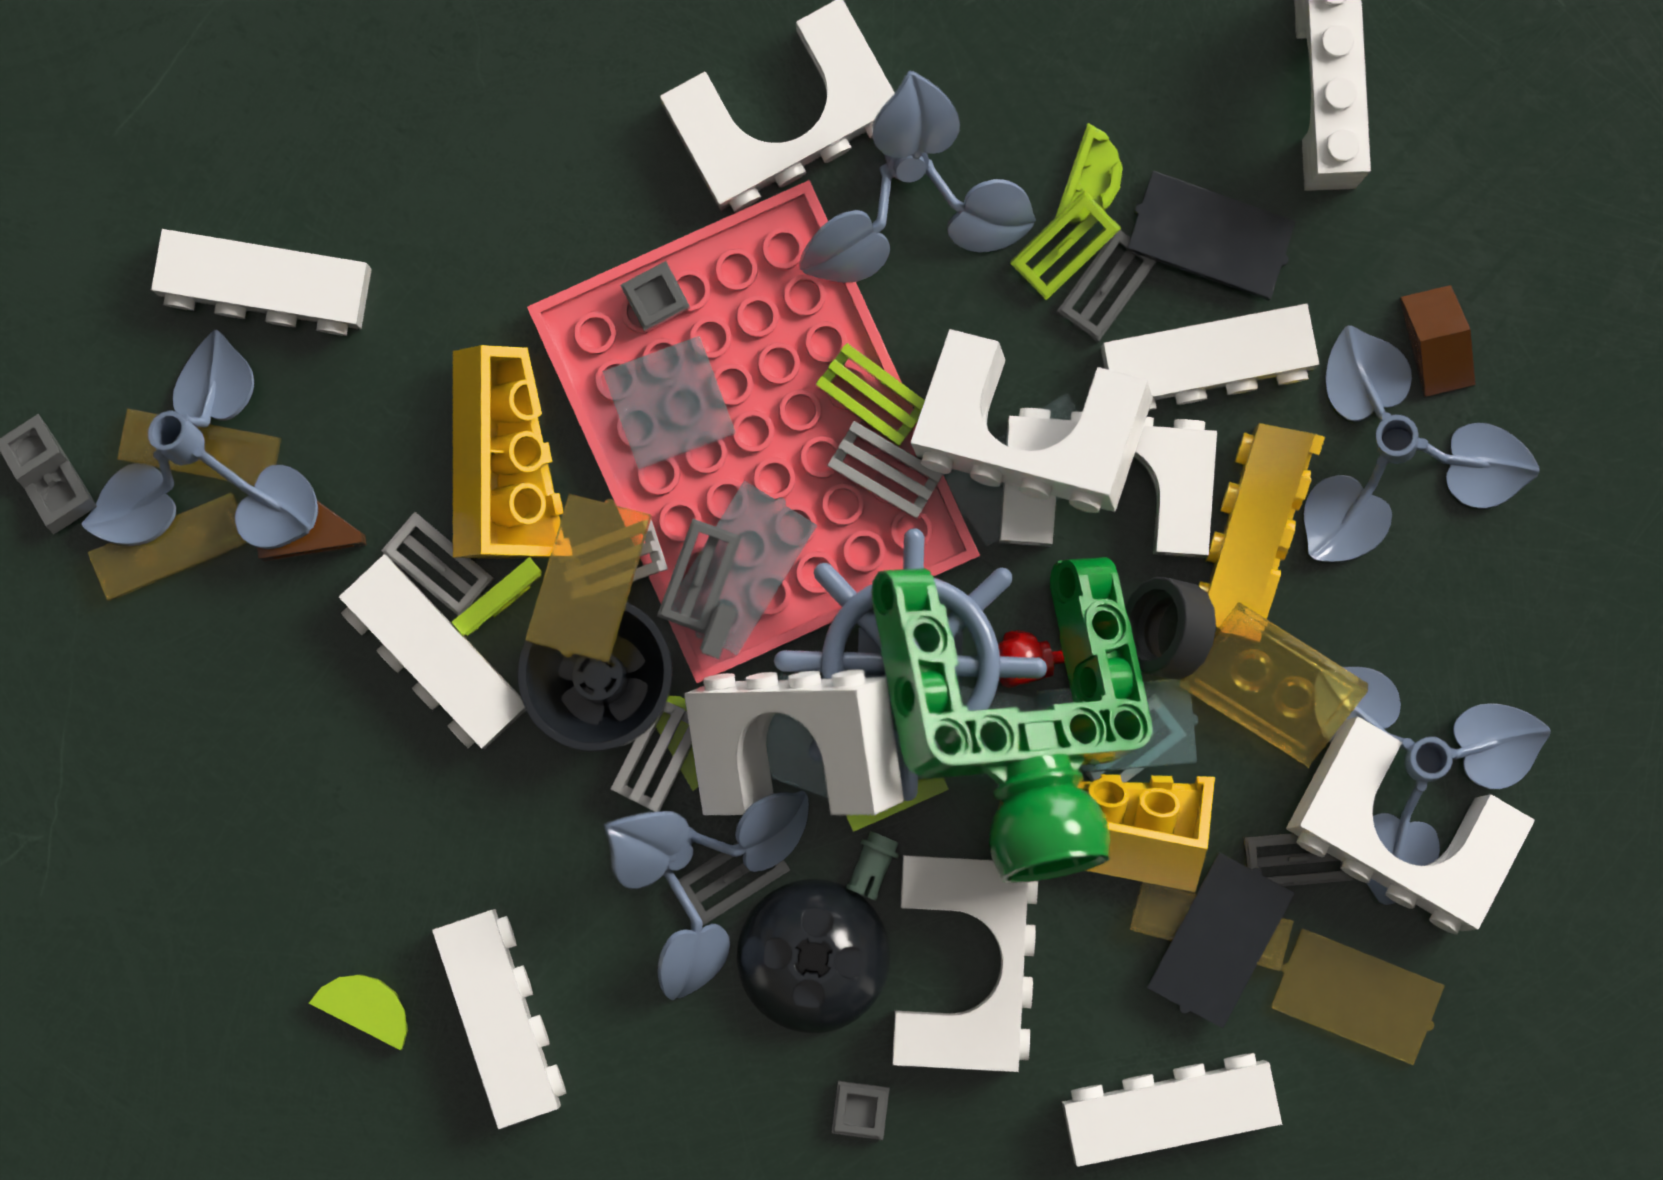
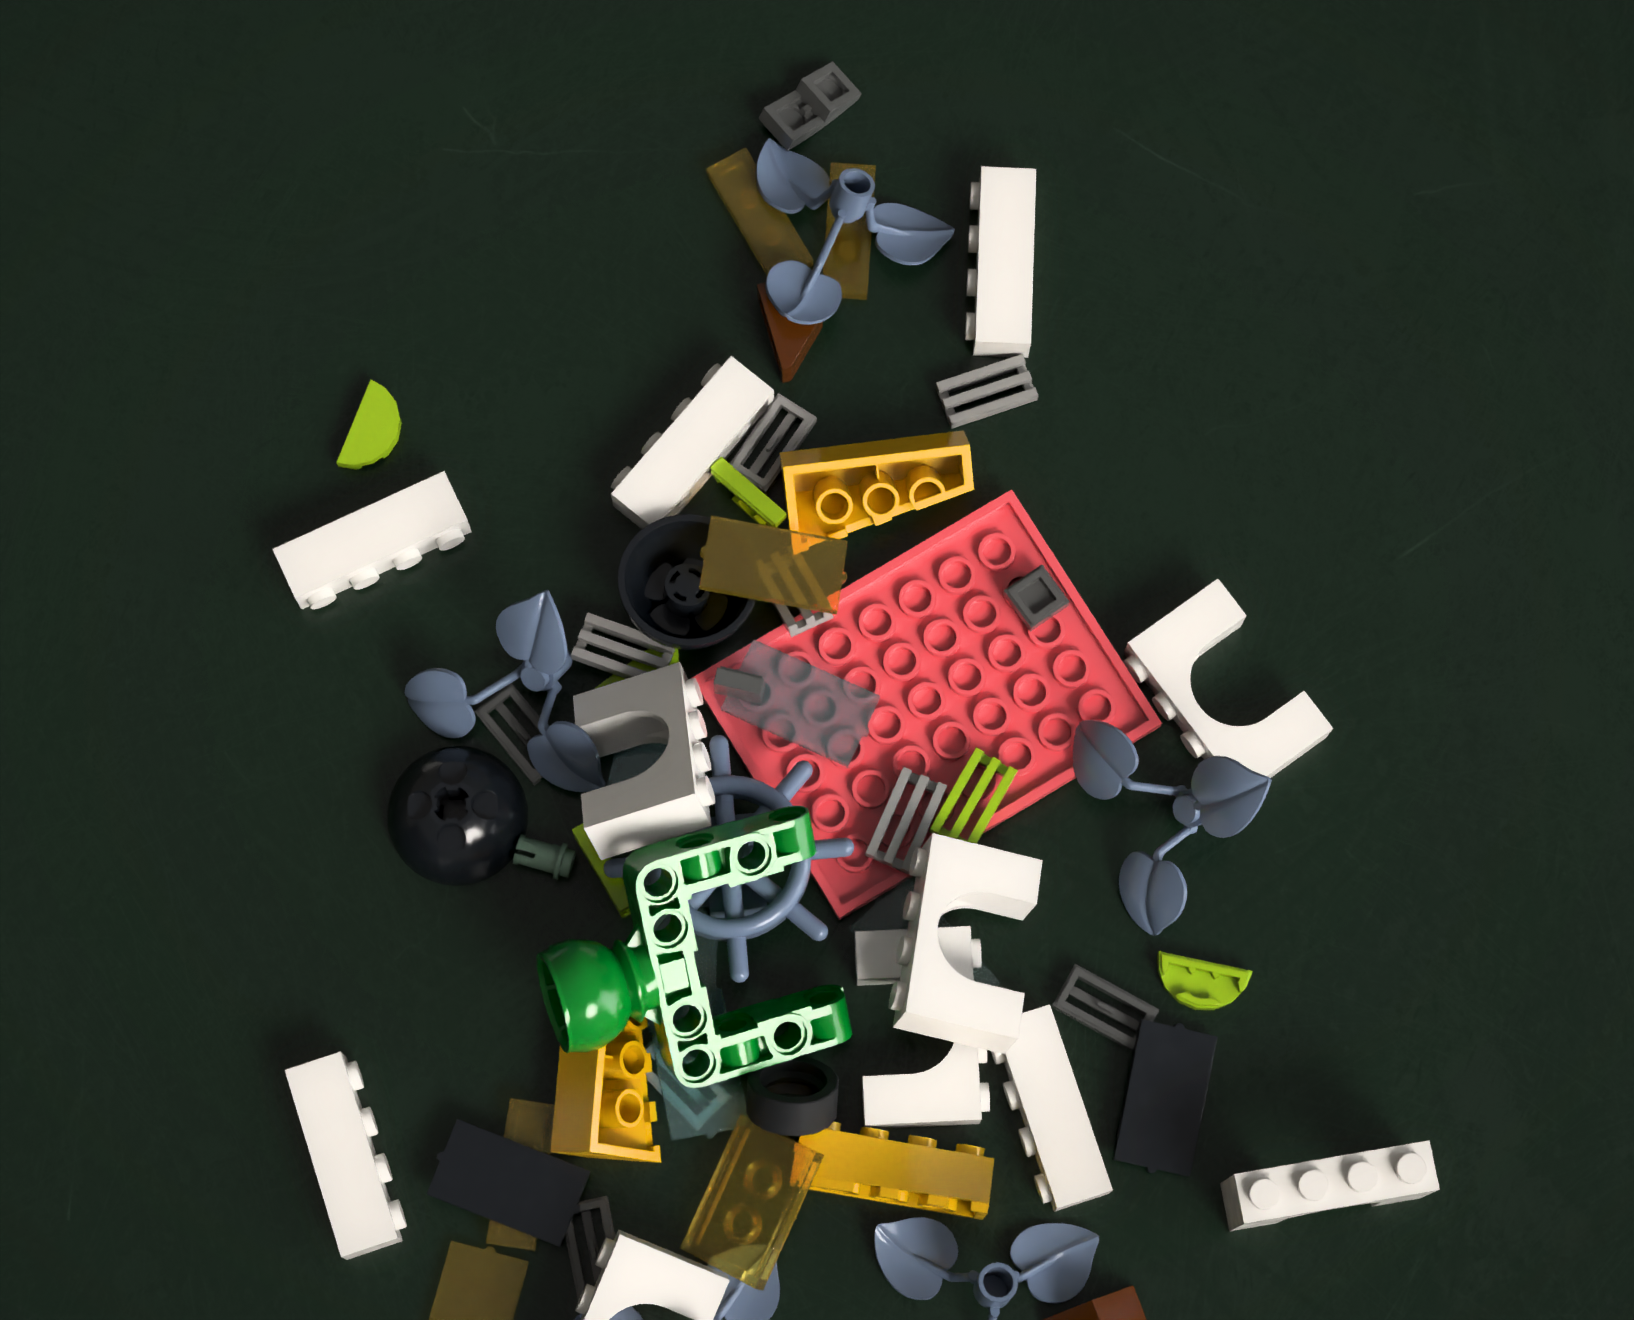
camera: 85 degrees right, 10 degrees down
(397, 277) = (982, 374): none -> light grey tile
(669, 402) = (942, 621): clear light blue tile -> none
(715, 534) = (793, 647): dark grey tile -> none
(860, 1110) = (321, 873): dark grey tile -> none
(991, 1031) = (402, 982): white arch -> none
(1025, 644) = (761, 969): red piece -> none
(1096, 214) = (1169, 987): lime tile -> none

